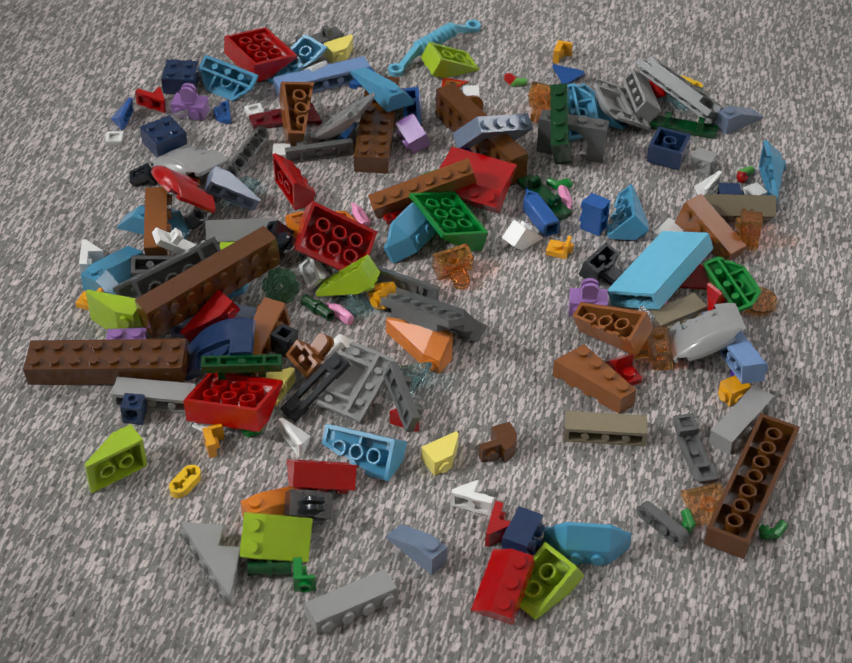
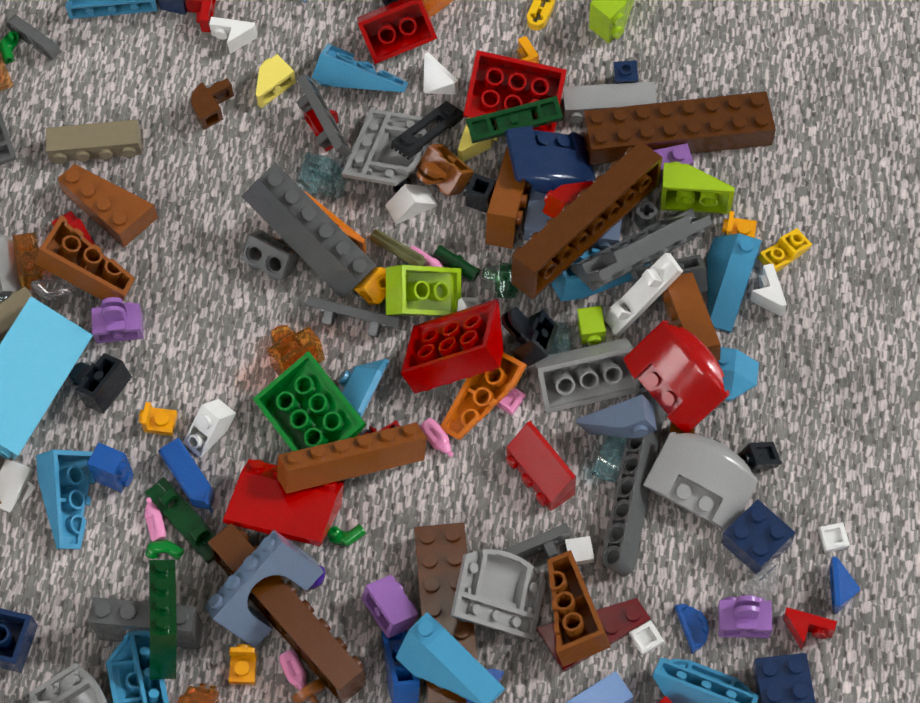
camera: 175 degrees right, 20 degrees up
(56, 286) = (786, 250): none -> yellow slope
(361, 316) = (397, 248): none -> olive axle

